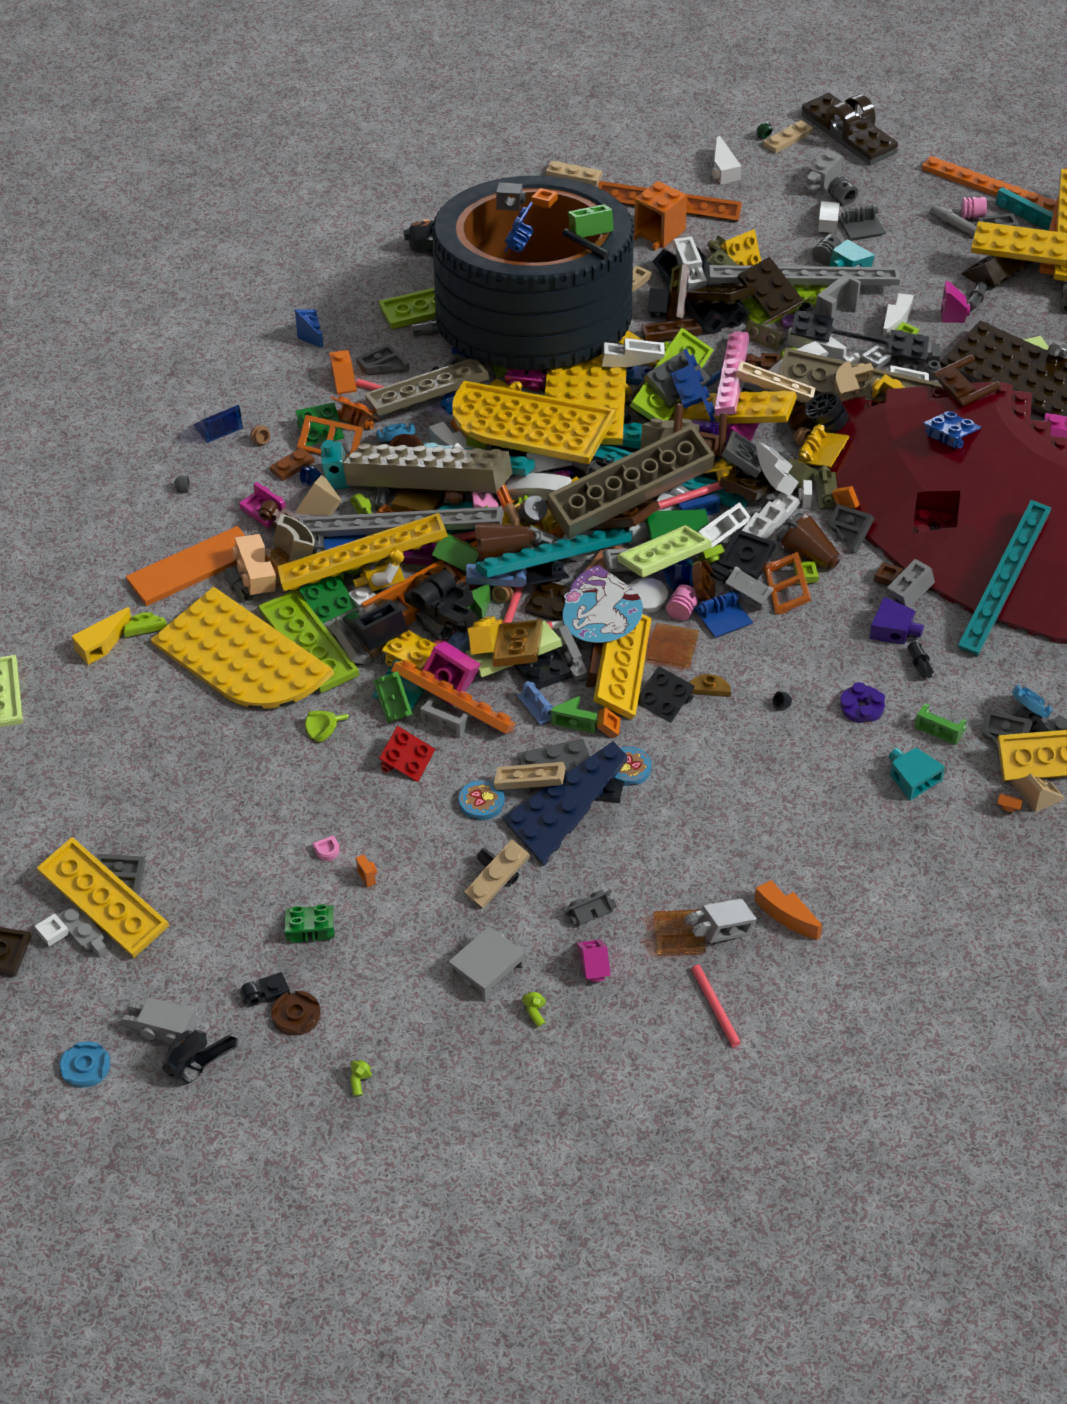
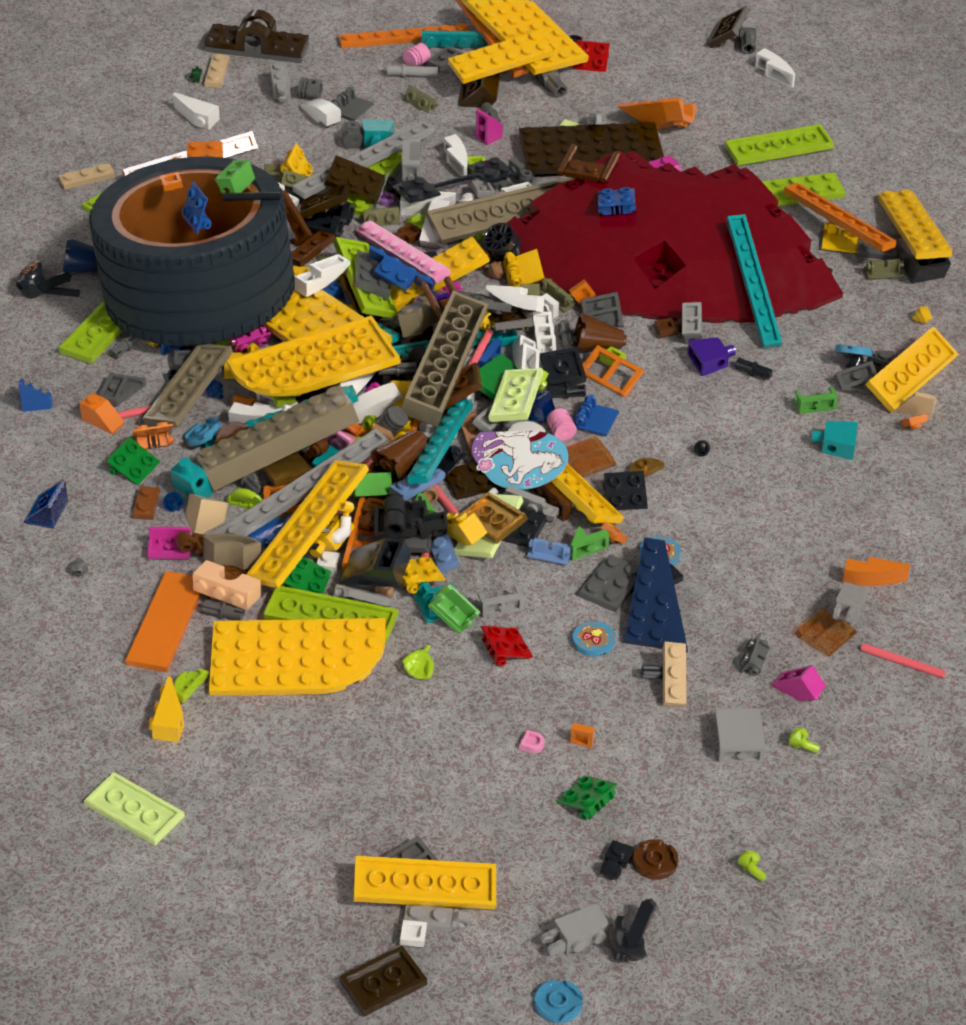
camera: 45 degrees left, 5 degrees down
(260, 435) = (94, 496): medium nougat plate -> none
(333, 424) = (153, 452): orange window -> none
(451, 666) = (470, 568): dark pink slope -> none
(459, 699) = (503, 579): orange plate -> none
(503, 200) = (145, 193): dark grey brick -> none
(529, 776) = (615, 597): tan plate -> none
(703, 585) = (562, 400): reddish brown tile -> none
(748, 588) = (600, 389): light grey hinge -> none
(773, 381) = (441, 240): tan plate -> none
(847, 379) = (493, 209): tan brick -> none
(862, 693) = (742, 416): dark purple plate -> none
(885, 383) = (523, 201): yellow bracket -> none
(930, 249) = (420, 99): none -> olive hinge

